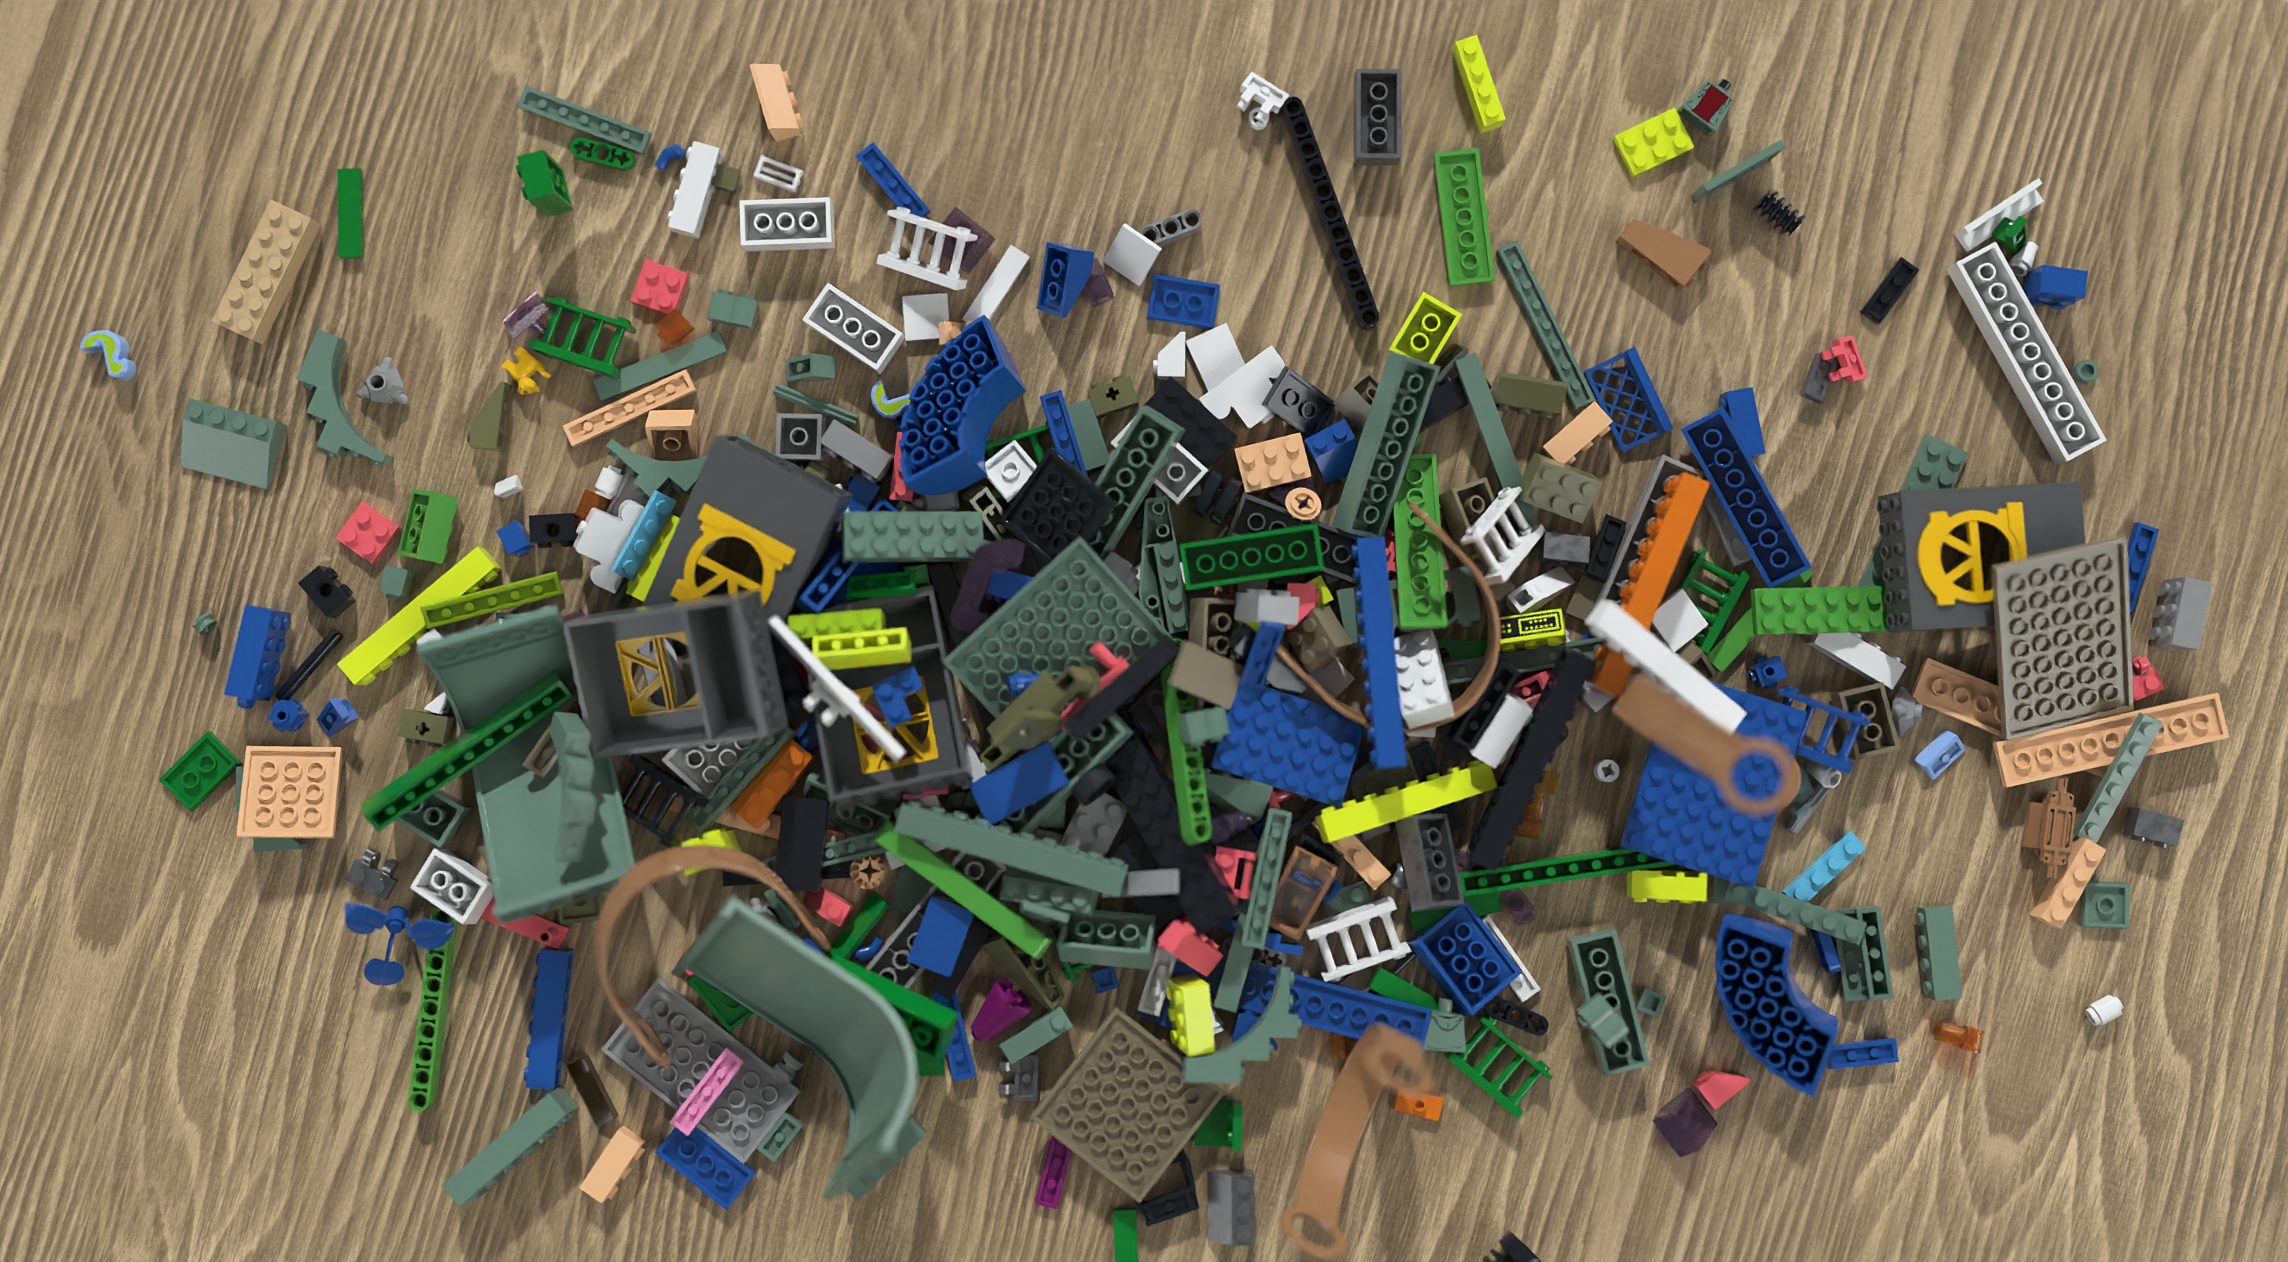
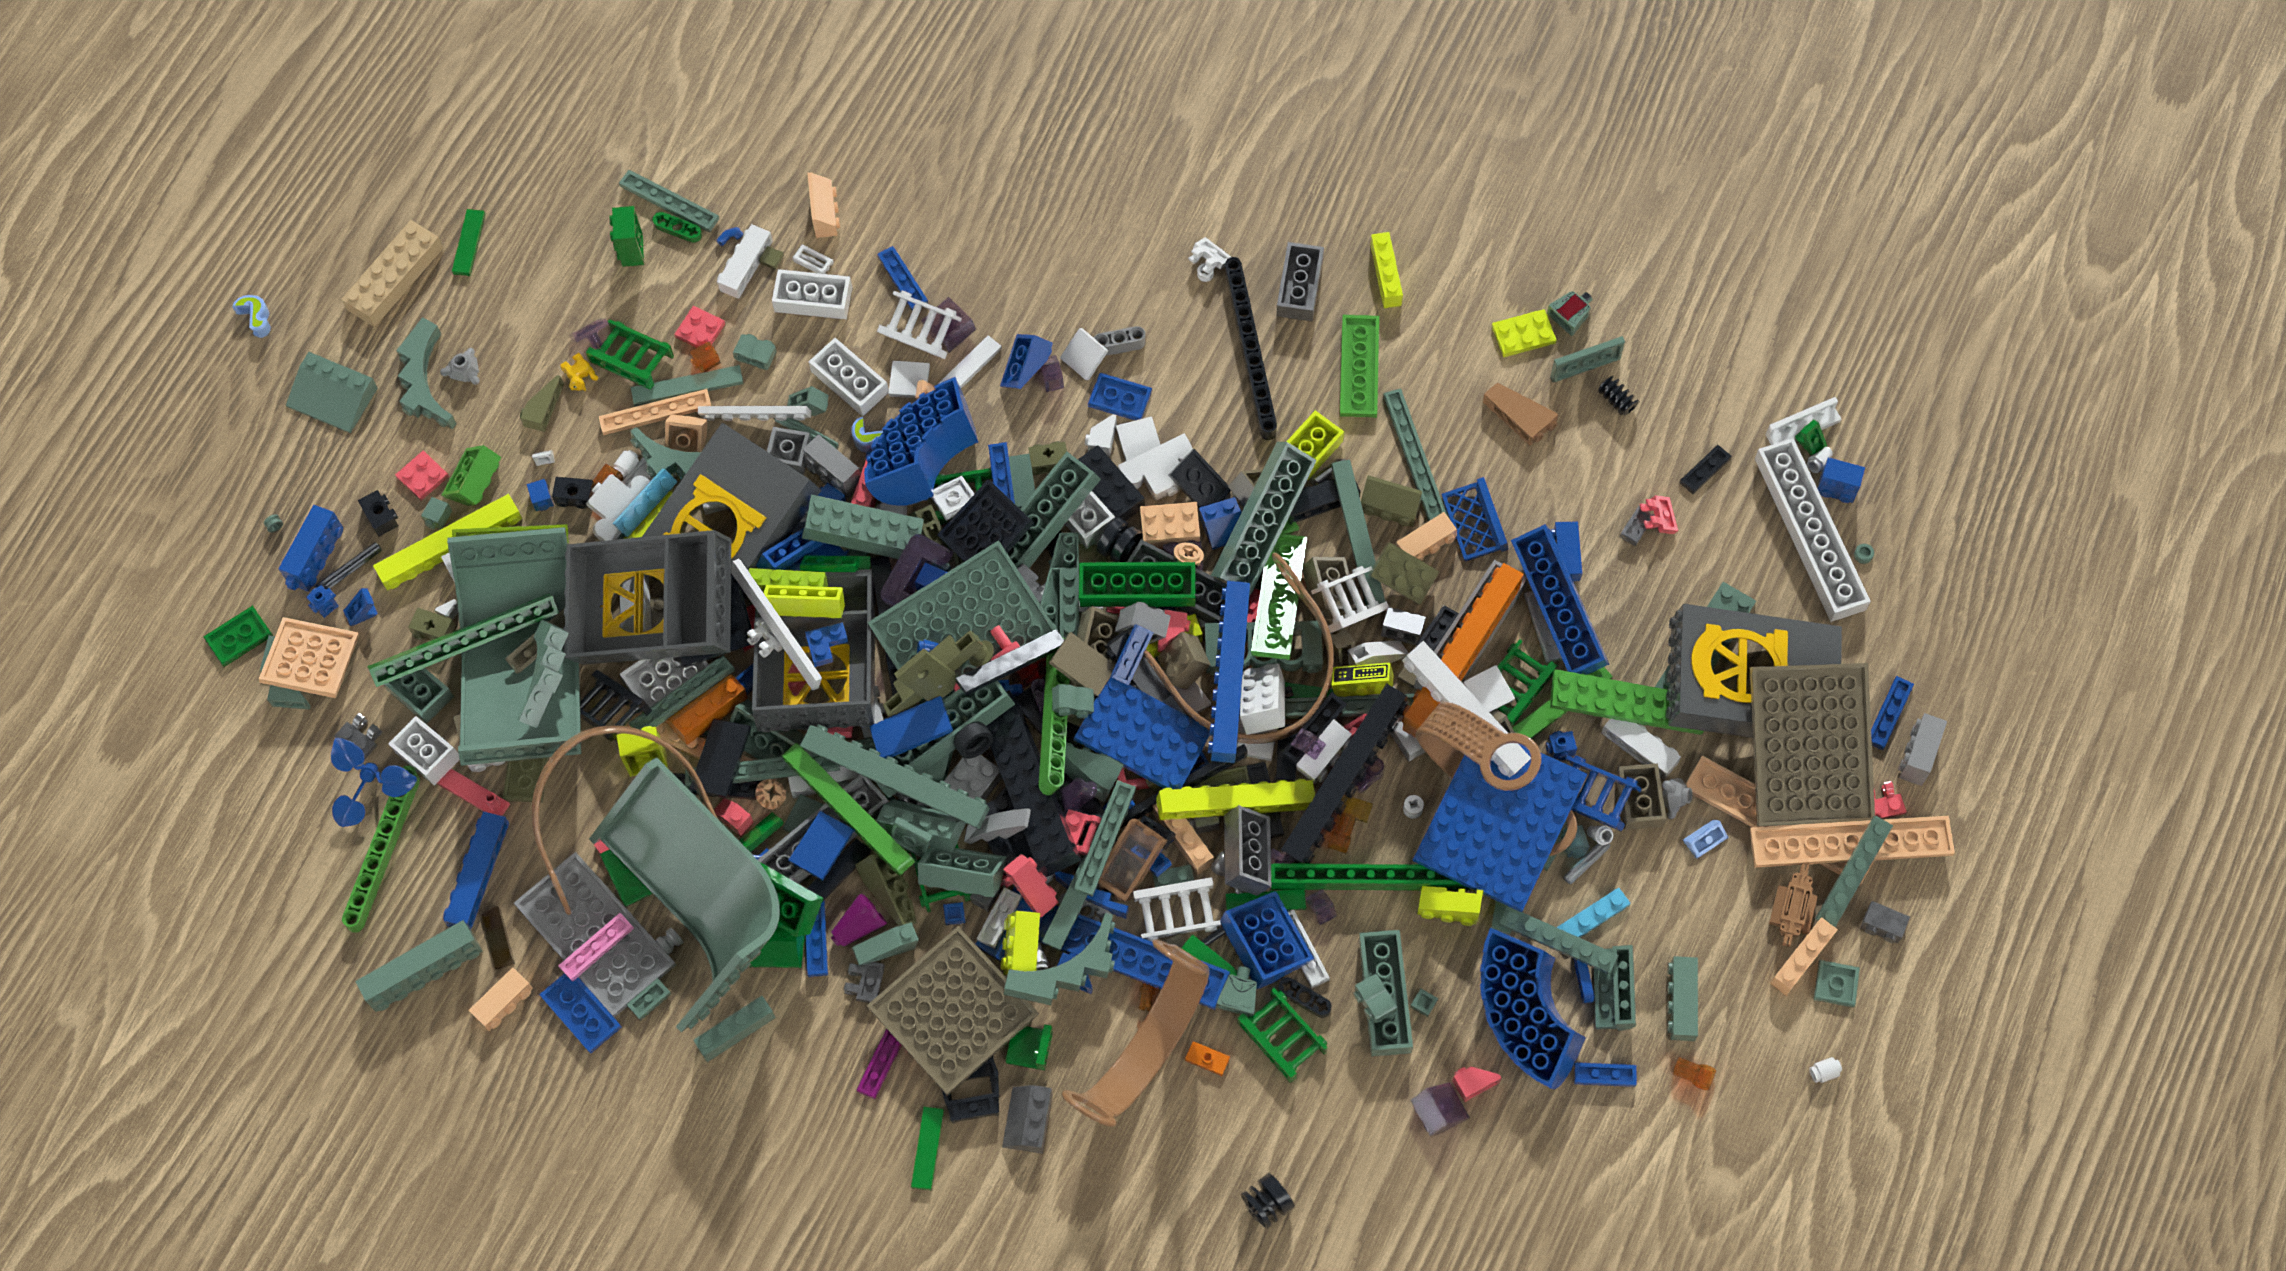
camera: 10 degrees right, 20 degrees down
(739, 396) = (760, 412): none -> white plate
(1483, 730) = (1308, 744): none -> clear purple bracket

